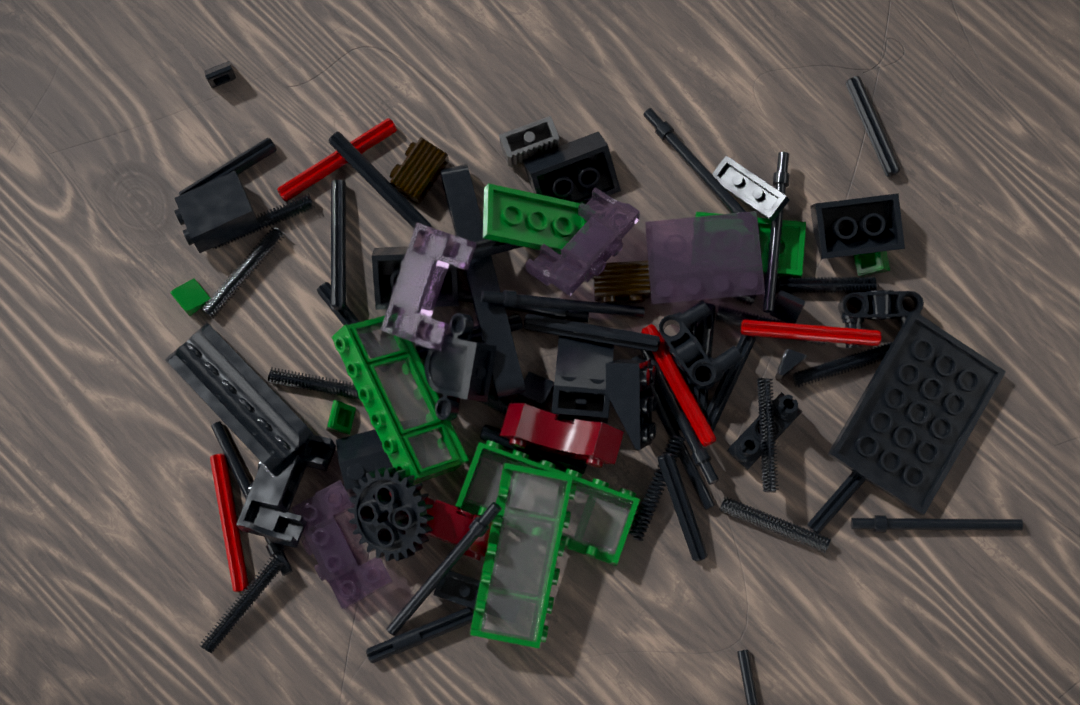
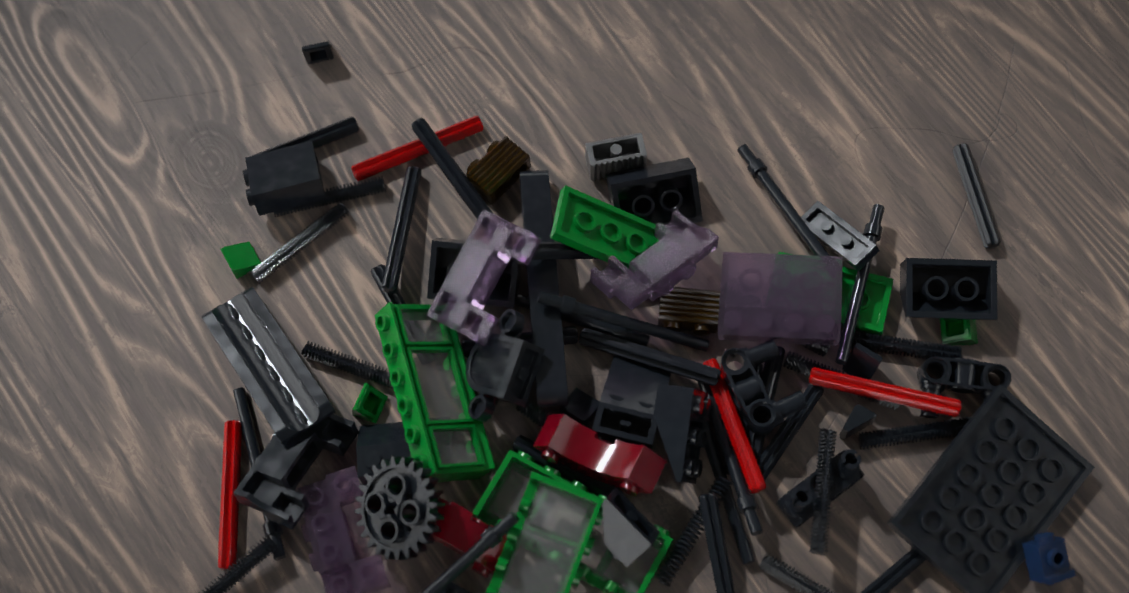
camera: 10 degrees right, 10 degrees down
(597, 498) = (626, 528): none -> black slope
(972, 462) = (1047, 559): none -> dark blue brick

